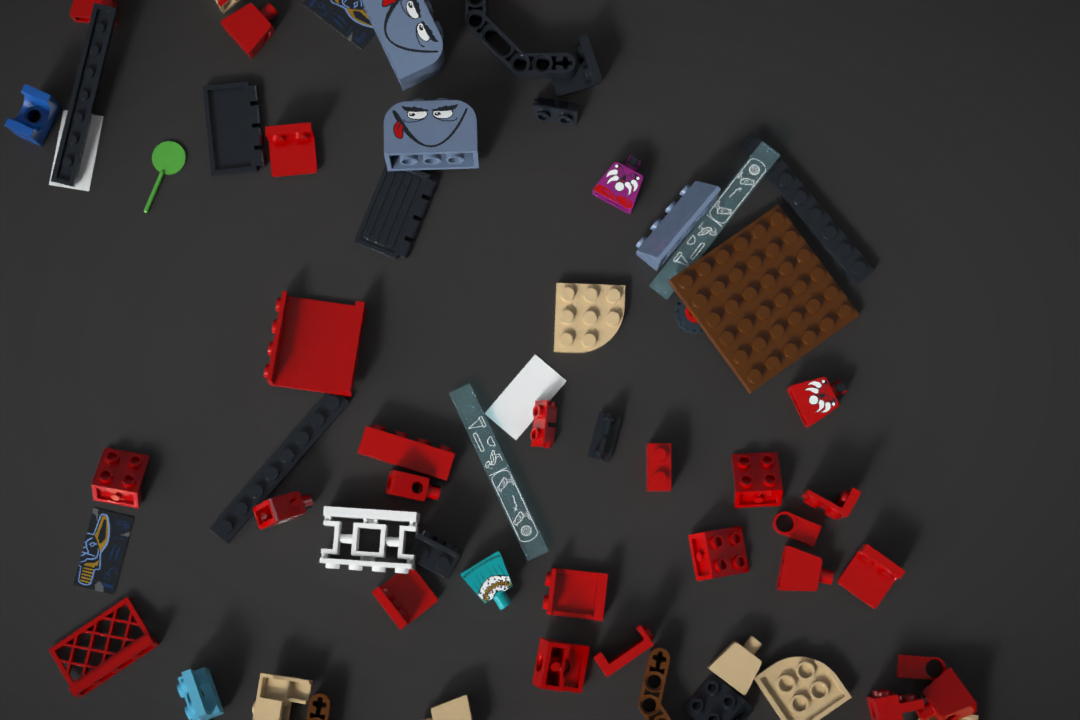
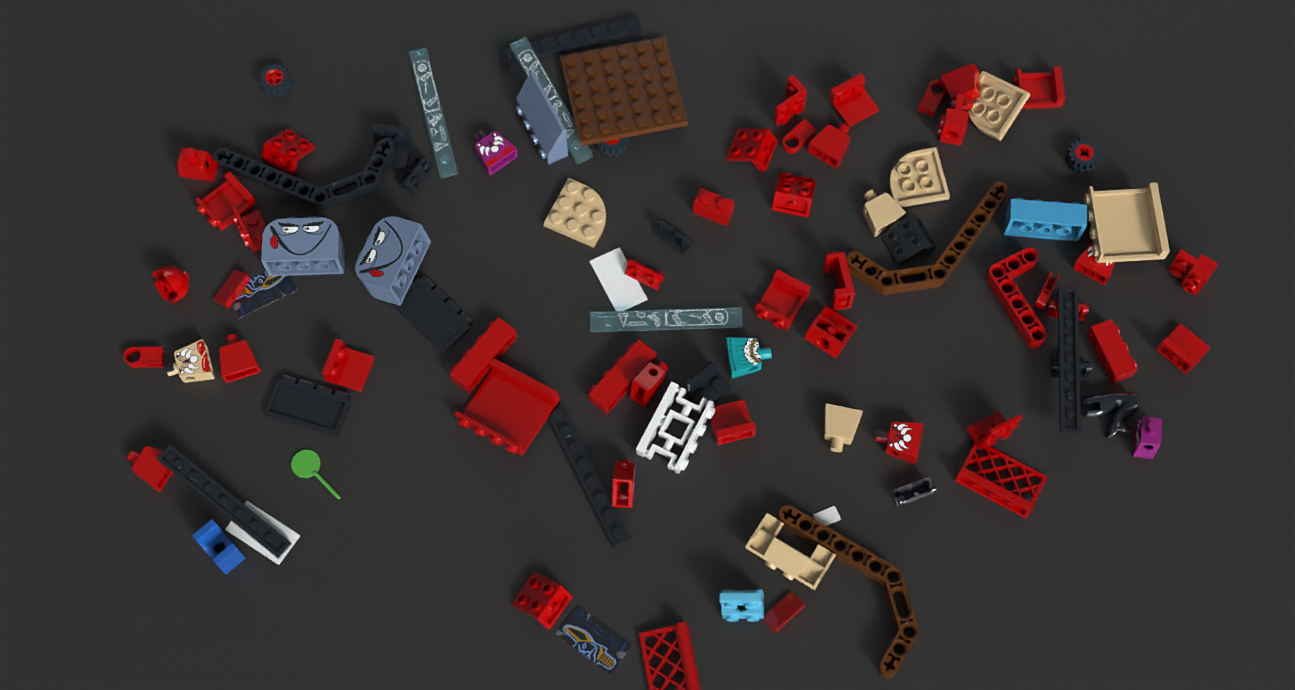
camera: 65 degrees left, 15 degrees down
(373, 290) = (476, 360): none -> red brick
(642, 93) = (433, 113): none -> clear light blue tile
(815, 398) = (711, 87): torso -> none

